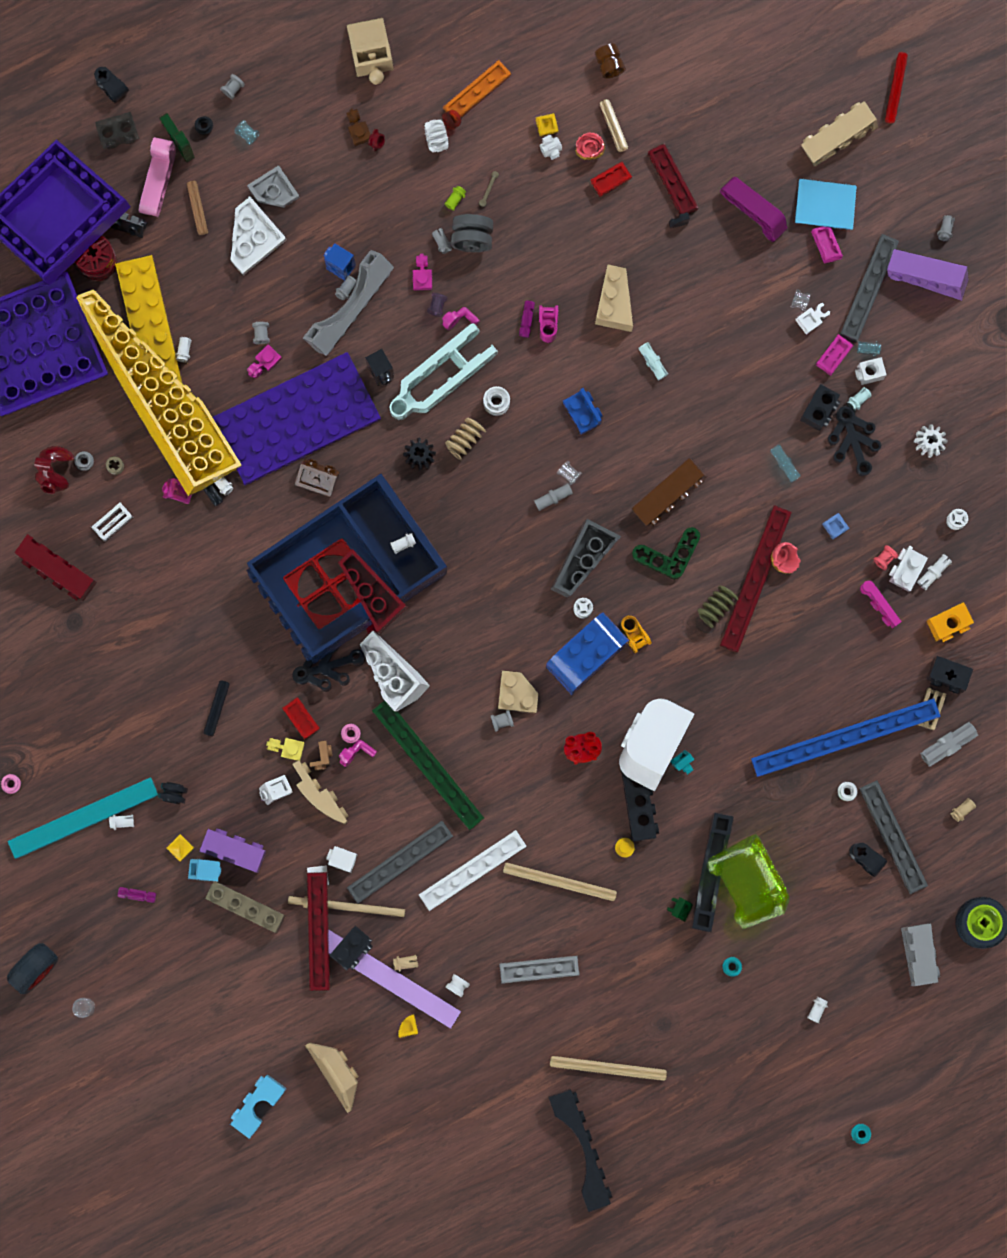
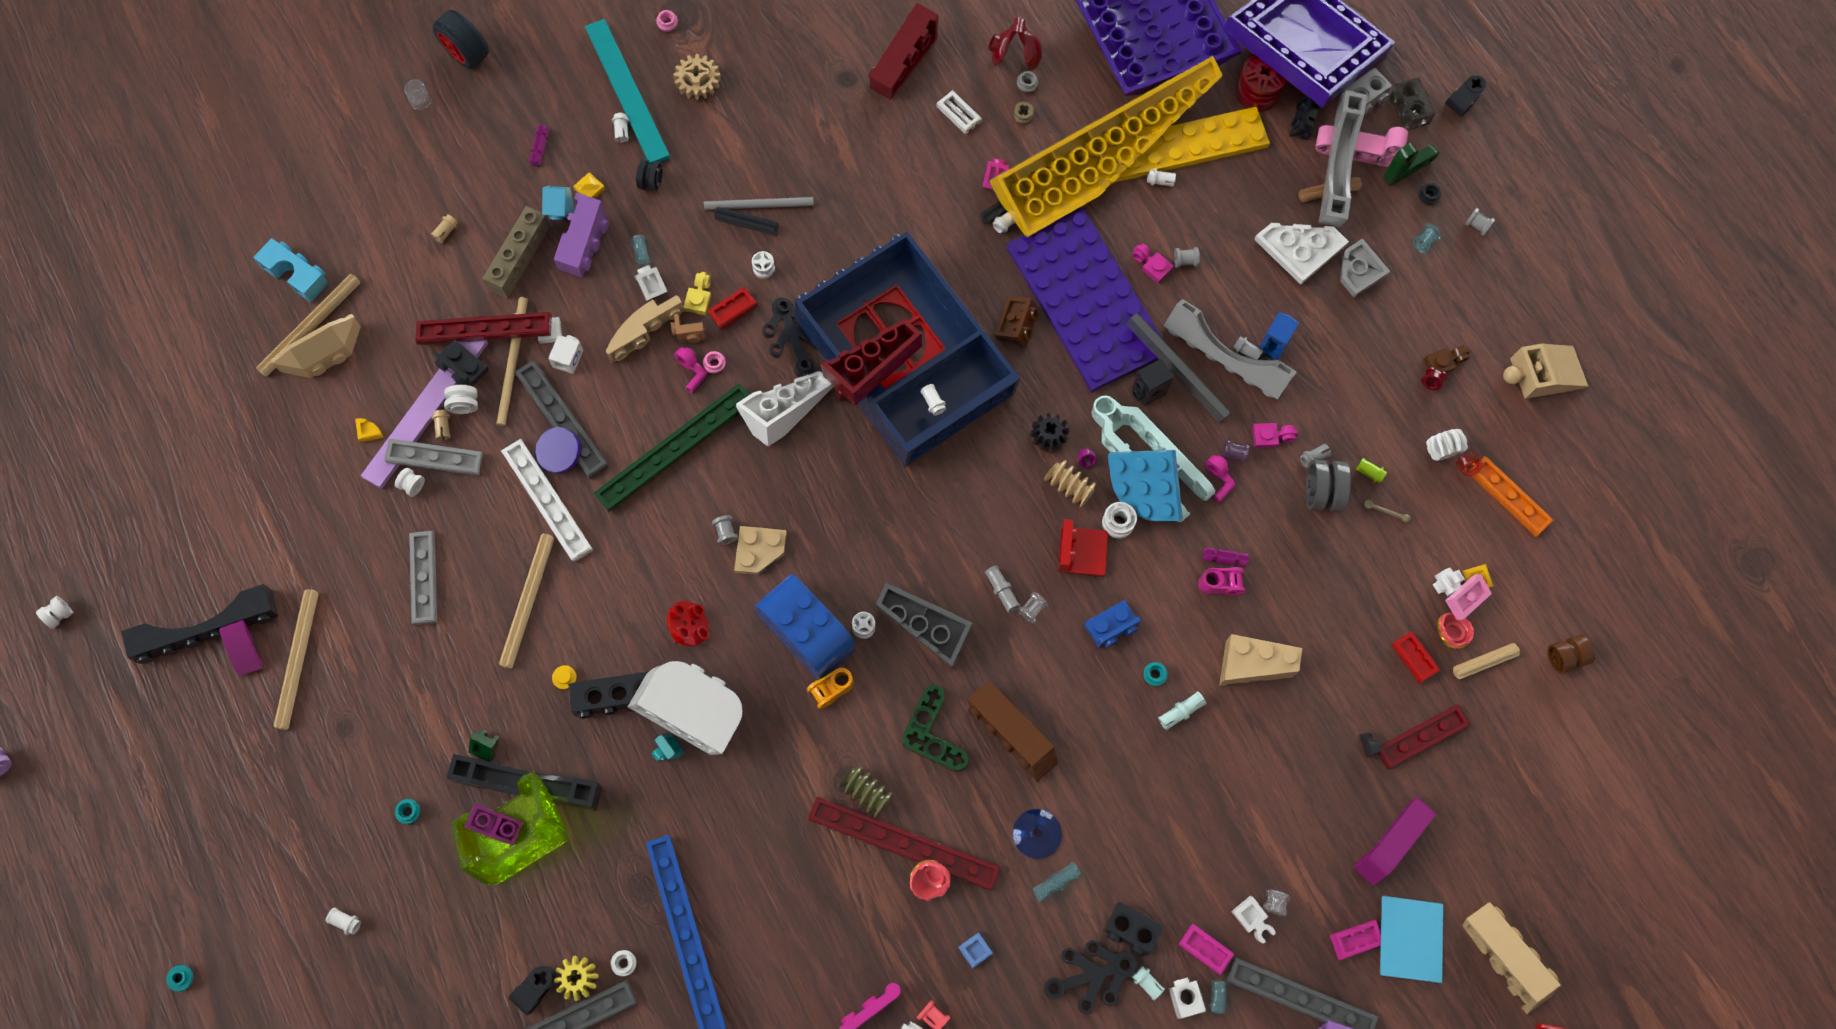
camera: 90 degrees right, 10 degrees down
(72, 762) = (697, 76): none -> tan gear
(107, 168) = (1364, 85): none -> light grey brick
(199, 698) = (759, 203): none -> light grey piece
(206, 202) = (1336, 192): none -> light grey arch
(218, 973) = (444, 228): none -> tan pin
(243, 799) = (640, 249): none -> clear light blue pin
(259, 689) = (759, 262): none -> white wheel
(309, 1087) = (312, 320): none -> tan axle
(366, 345) = (1178, 367): none -> dark grey tile
(384, 946) = (460, 399): none -> white wheel
(430, 861) = (558, 450): none -> tile
(435, 967) = (433, 457): none -> light grey tile
(441, 425) = (1086, 463): none -> magenta hinge
(469, 376) = (1147, 483): none -> dark azure plate
(521, 431) = (1082, 550): none -> red bracket
(565, 133) = (1468, 597): none -> bright pink plate
(601, 1112) = (240, 648): none -> magenta slope
(623, 374) = (1155, 666): none -> teal plate
(745, 486) = (1035, 846): none -> clear blue dish
(745, 894) = (493, 824): none -> magenta slope
(855, 831) = (570, 971): none -> light yellow gear

